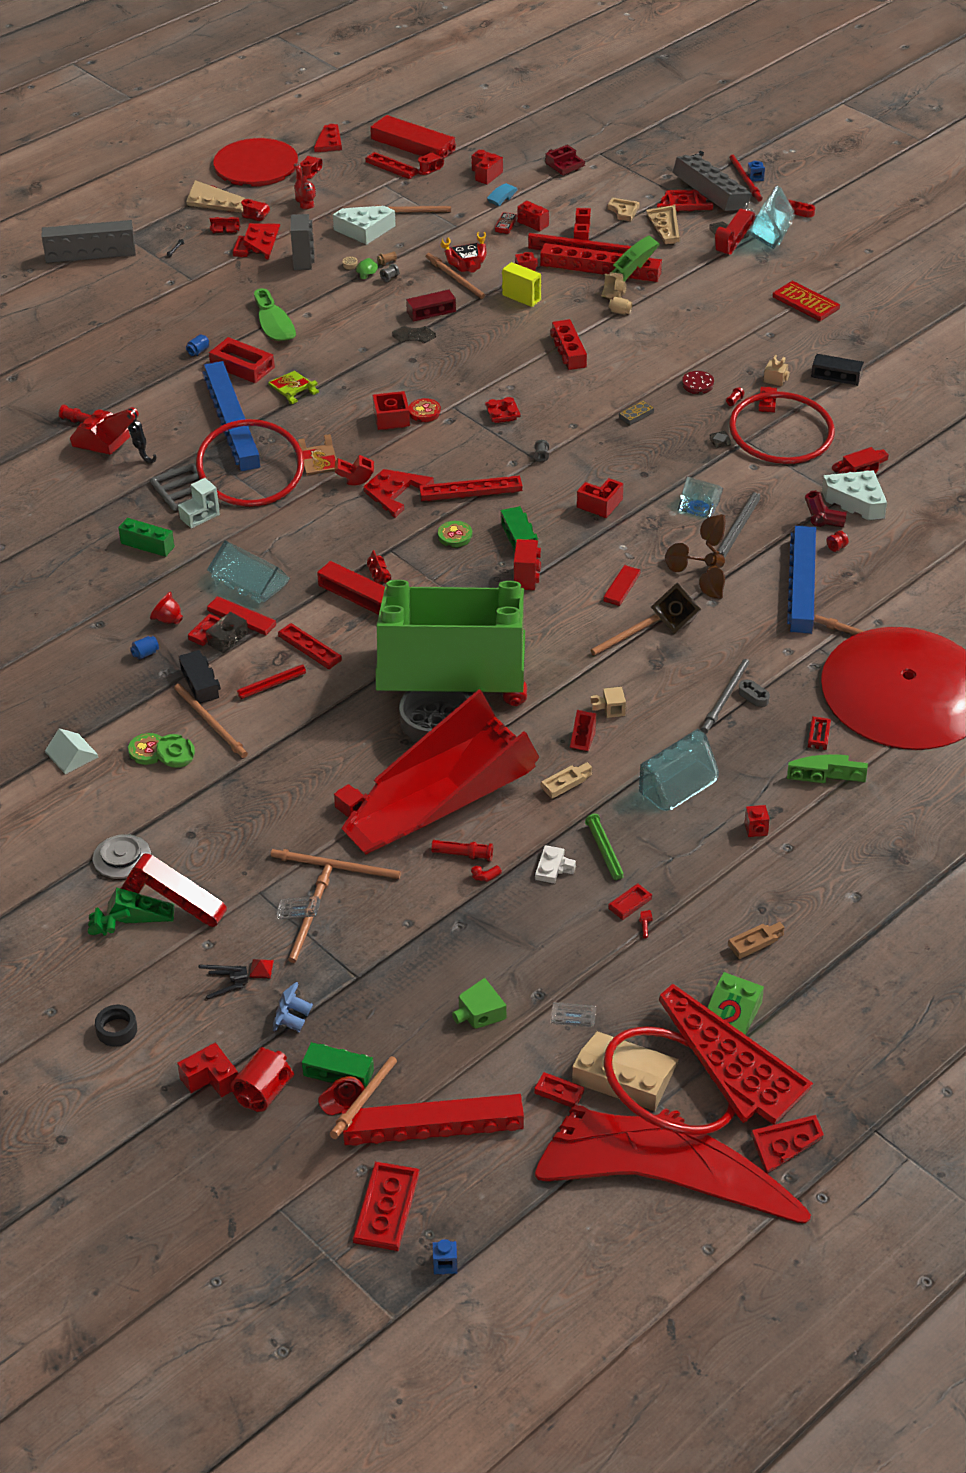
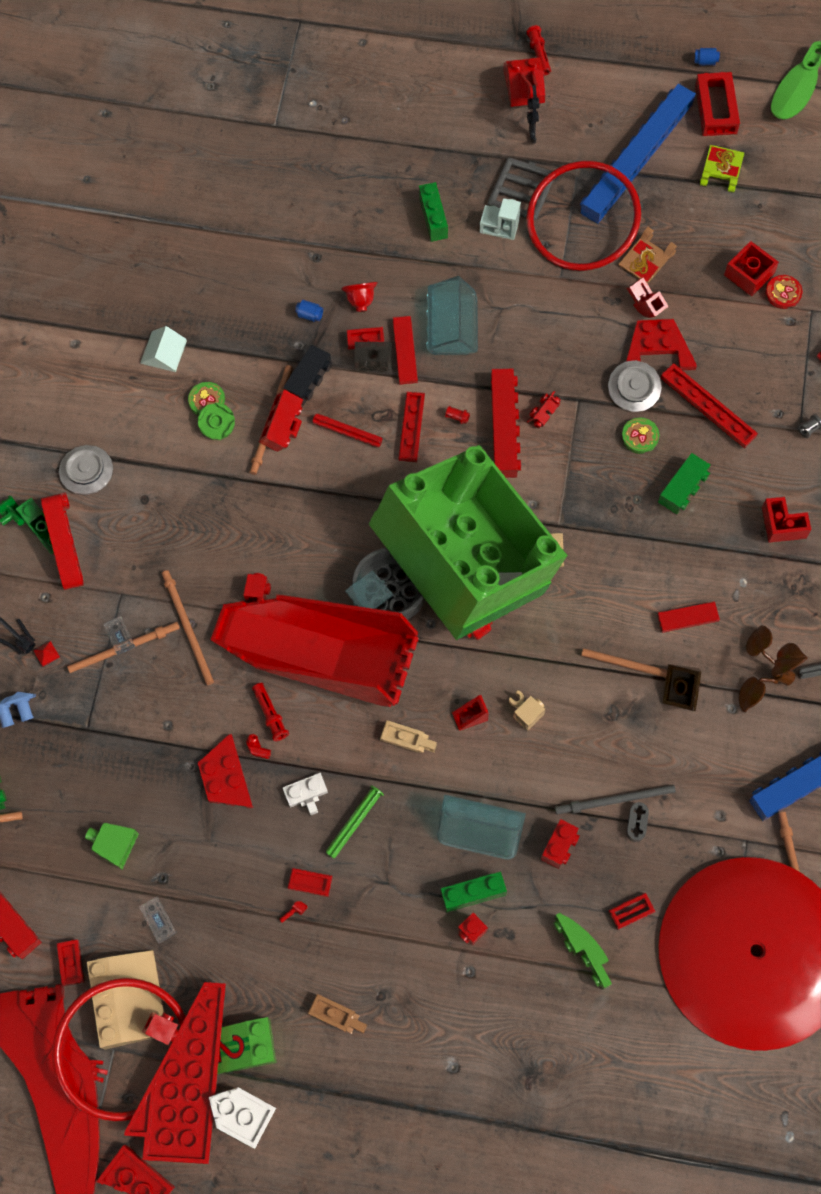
camera: 55 degrees right, 25 degrees up
(221, 710) = (278, 424): none -> red piece
(331, 614) = (456, 414): none -> red pin
(413, 515) = (634, 386): none -> piece
(429, 718) = (369, 591): none -> clear light blue piece
(490, 907) = (224, 775): none -> red wing
(527, 563) = (637, 524): red brick -> none
(675, 1041) = (161, 1027): none -> brick
(727, 805) = (473, 891): none -> green brick
(733, 738) = (559, 844): none -> red brick
(789, 1039) = (241, 1115): none -> white tile

